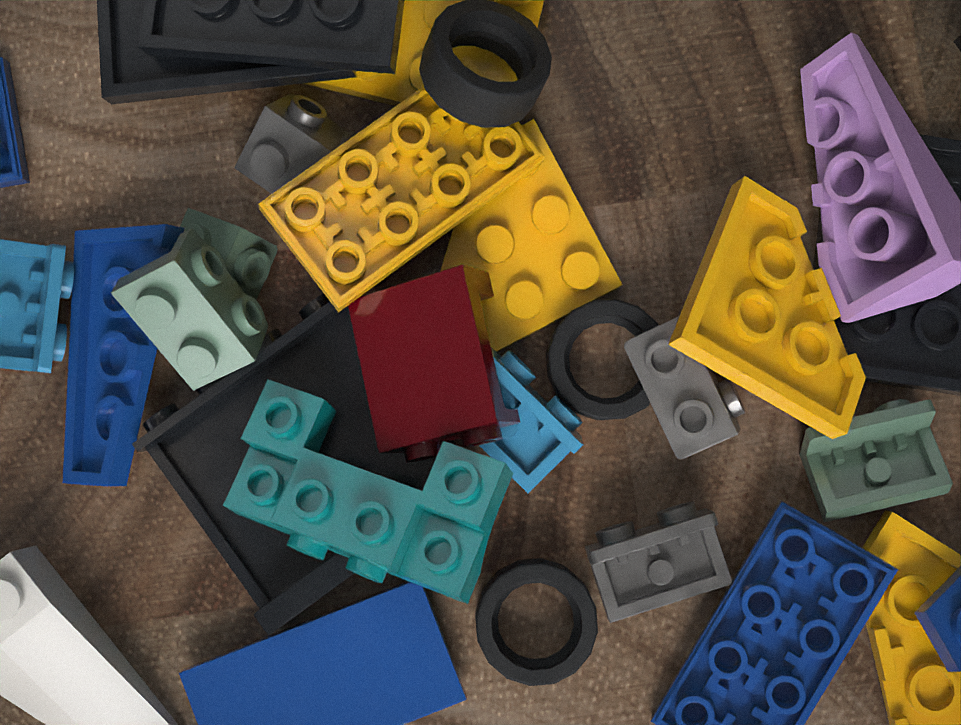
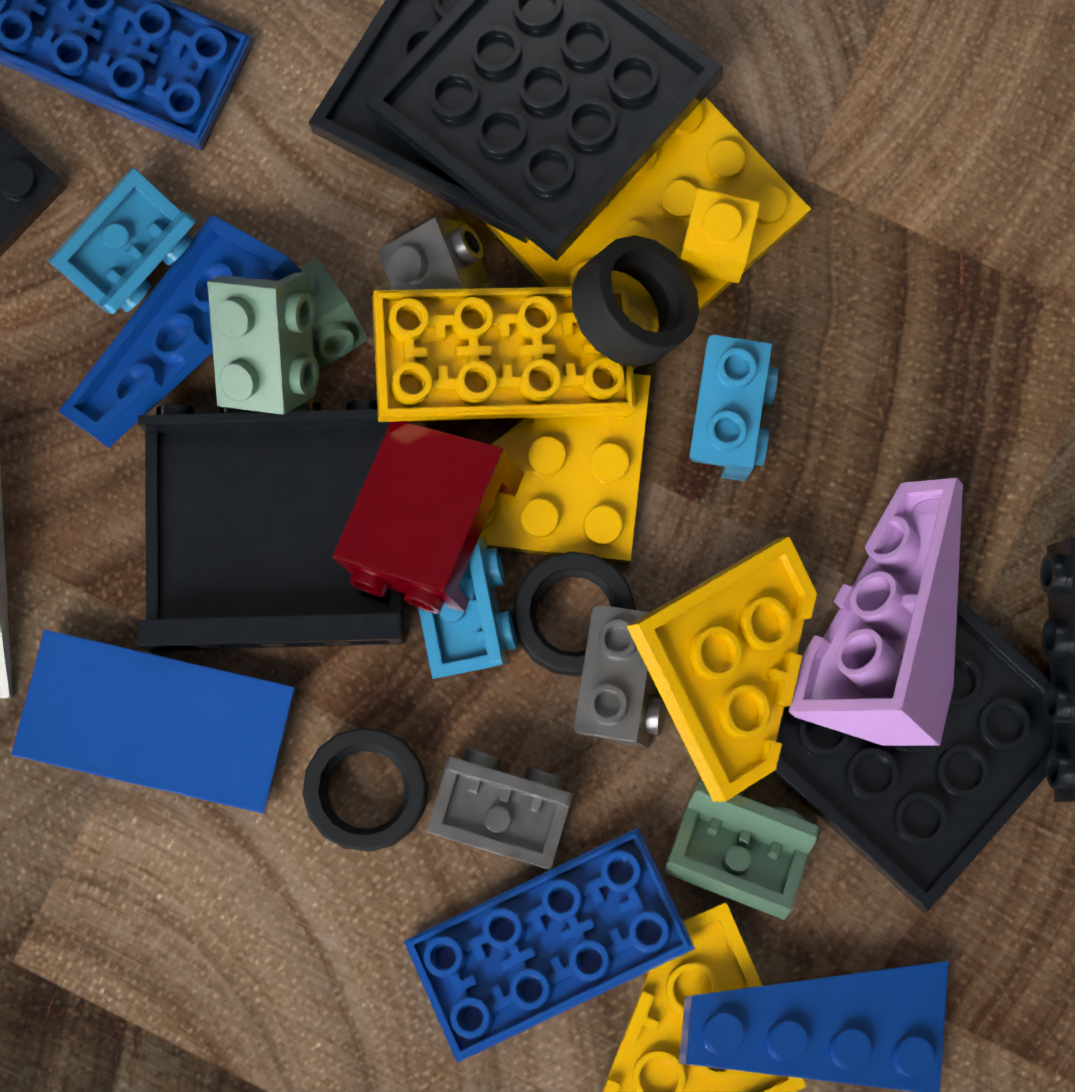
camera: 30 degrees right, 5 degrees down
(377, 523) = (288, 606): teal bracket -> none
(622, 98) = (730, 405): none -> dark azure bracket

